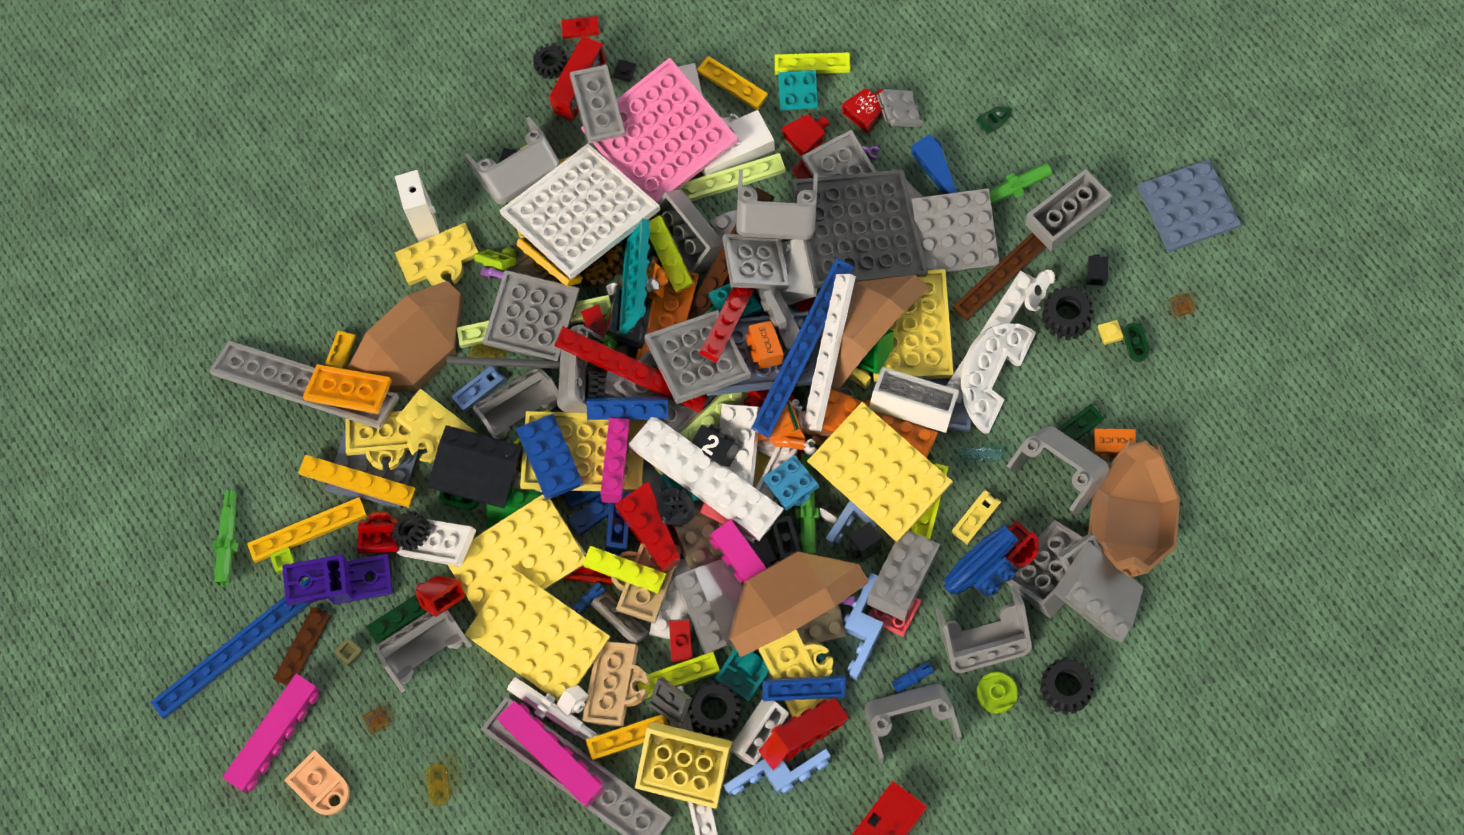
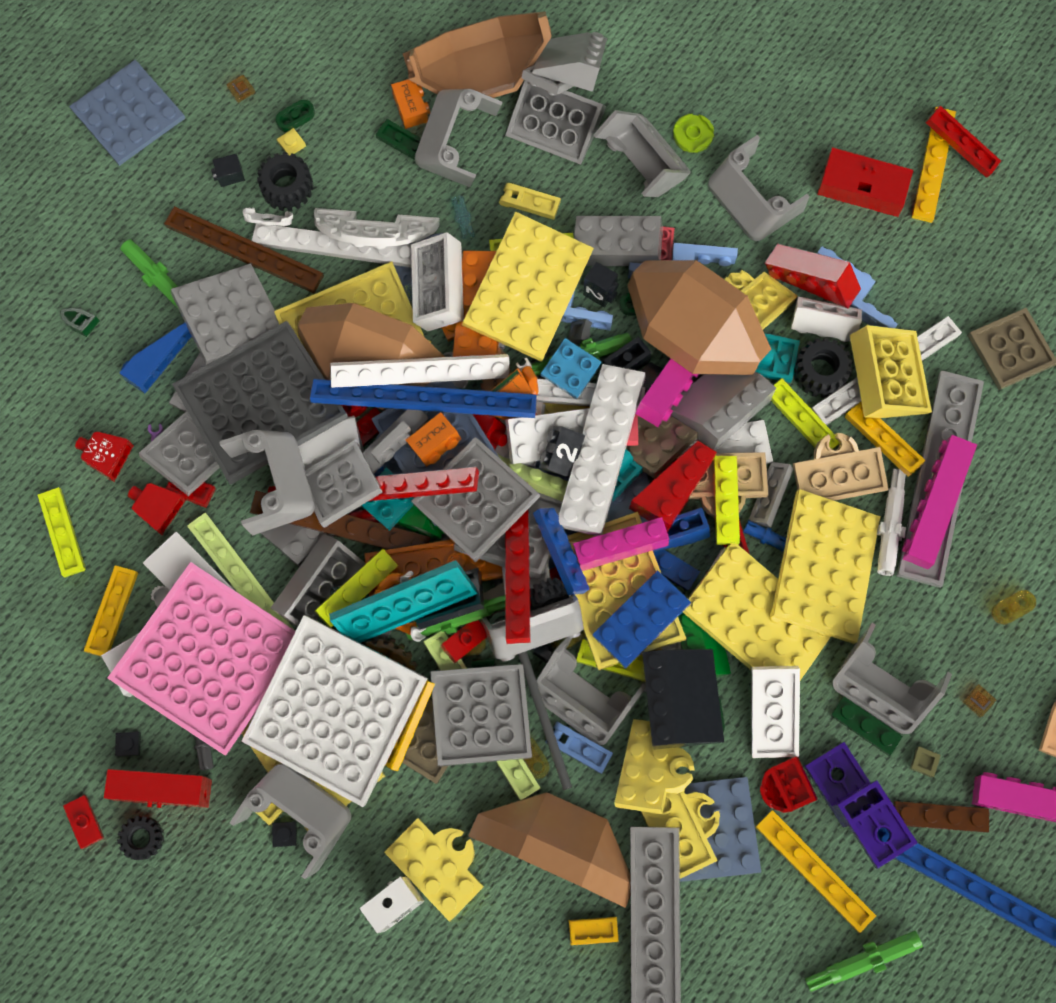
camera: 120 degrees left, 5 degrees up
(281, 558) = (860, 882): lime plate -> none
(347, 389) = (648, 887): light orange plate -> none
(357, 481) = (741, 836): yellow plate -> none
(405, 524) = (780, 757): black tyre -> none
(439, 594) = (829, 686): red torso -> none
(491, 272) = (439, 785): medium lavender arm -> none
(500, 261) = (421, 789): lime plate -> none
(572, 700) = (875, 504): white plate -> none
(597, 104) = (192, 740): light grey plate -> none
(670, 701) = (837, 407): dark grey plate -> none
(675, 516) = (647, 463): black plate -> none
(680, 640) = (768, 425): red plate -> none
(797, 90) = (101, 533): teal plate -> none
(803, 688) = (770, 289): blue tile -> none
(899, 108) = (94, 416): light grey plate -> none
(912, 677) = (710, 207): blue pin -> none
(984, 565) = (580, 172): blue plate -> none
(1025, 548) = (547, 155): red slope -> none
(1055, 698) = (662, 86): black tyre -> none
(1068, 210) = (172, 206): light grey brick -> none

